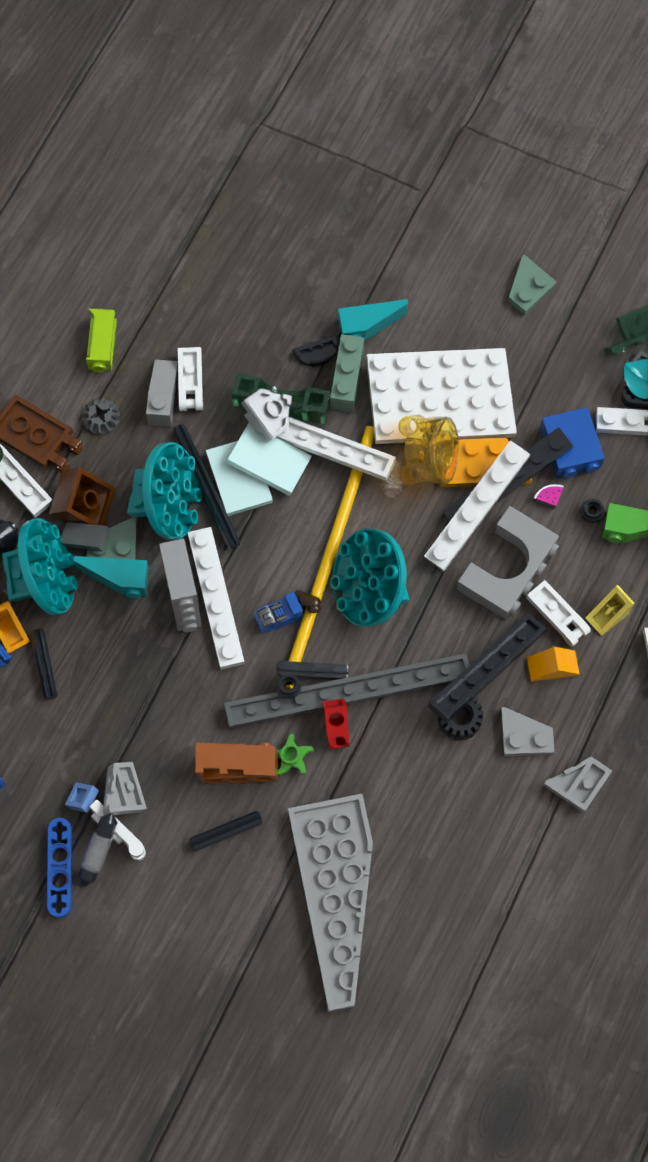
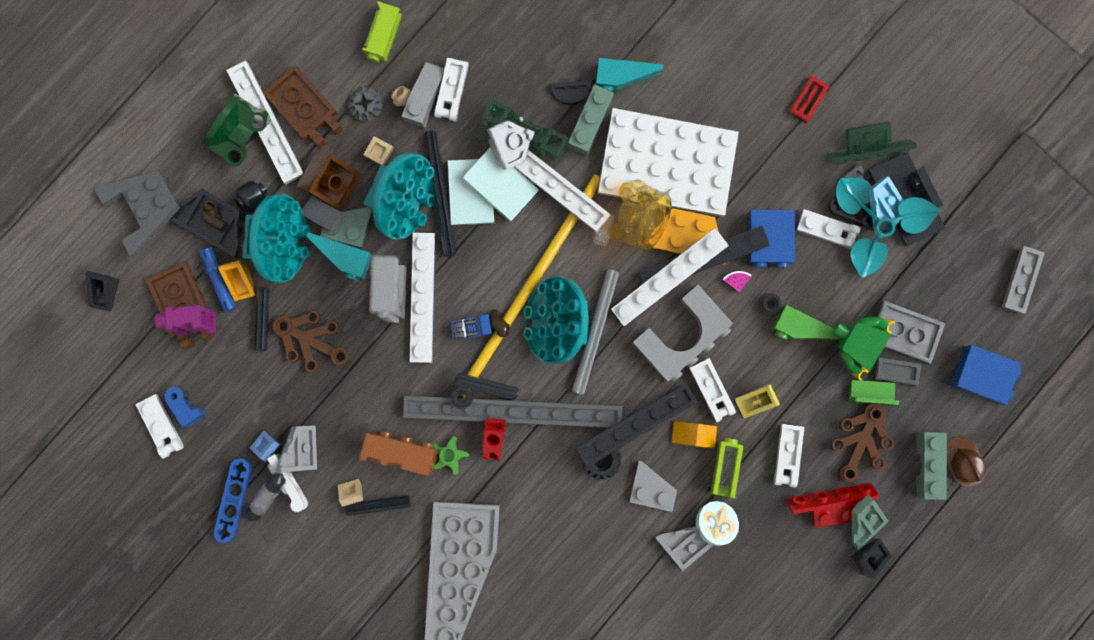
camera: 15 degrees right, 15 degrees up
(101, 672) = (308, 339): none -> reddish brown plant
(128, 458) = (378, 151): none -> tan plate
(138, 398) = (401, 96): none -> tan plate
(191, 823) = (350, 492): none -> tan plate
(414, 586) = (595, 332): none -> light grey axle
(529, 286) = (778, 76): sand green wing -> none
(563, 316) = (799, 114): none -> red tile
(599, 690) = (727, 468): none -> lime window
(607, 750) = (717, 523): none -> light aqua tile

